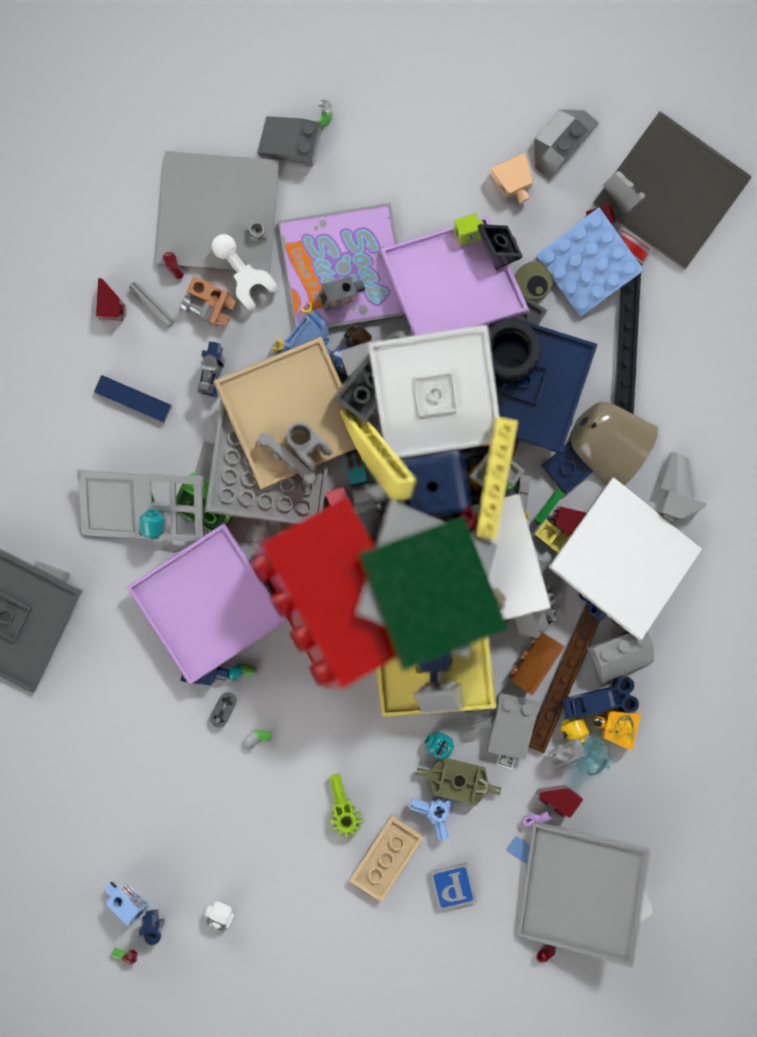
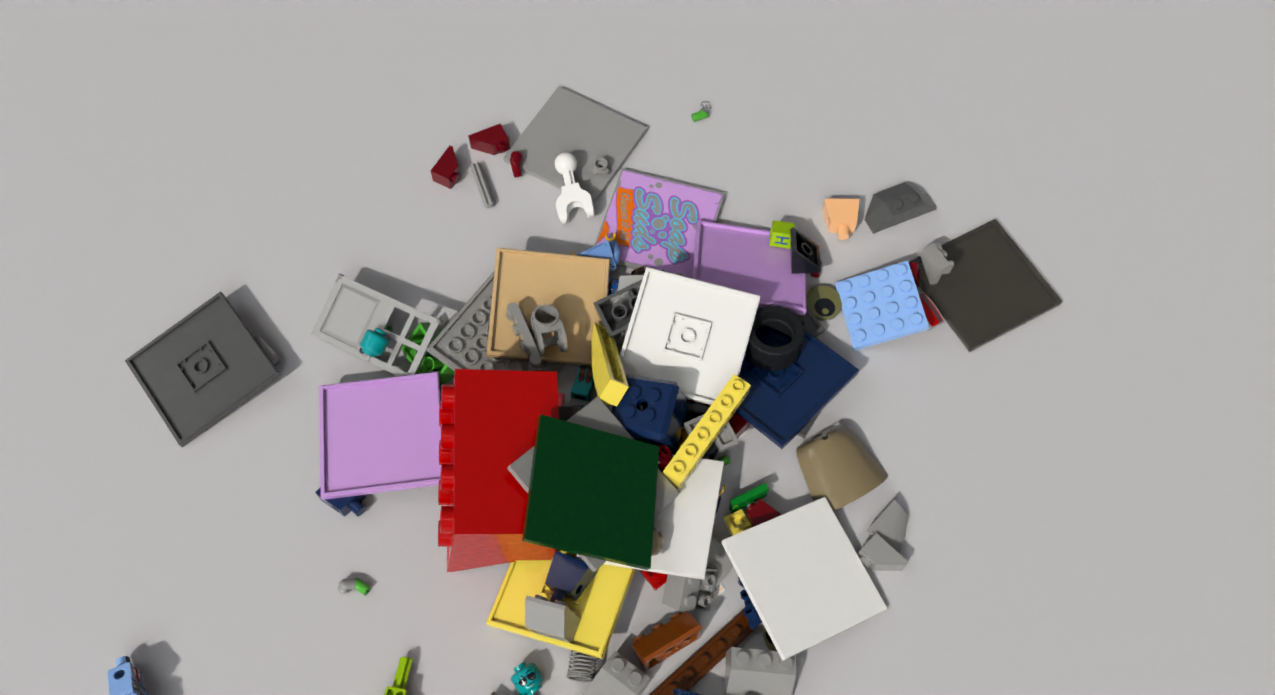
camera: 25 degrees right, 25 degrees down
(132, 398) = (423, 248): dark blue tile -> none
(133, 249) = (490, 140): none -> dark red slope
(211, 369) = (505, 238): hips -> none
(214, 302) = (535, 201): nougat hips -> none
(219, 707) = (339, 543): dark grey beam -> none
(239, 669) = (376, 512): arm -> none
(290, 139) = (666, 118): dark grey slope -> none
(339, 292) = (644, 235): dark grey torso -> none
(523, 490) = (730, 473): light grey piece -> none
(566, 468) = (782, 473): dark blue tile -> none
(627, 344) = (889, 388): black tile -> none

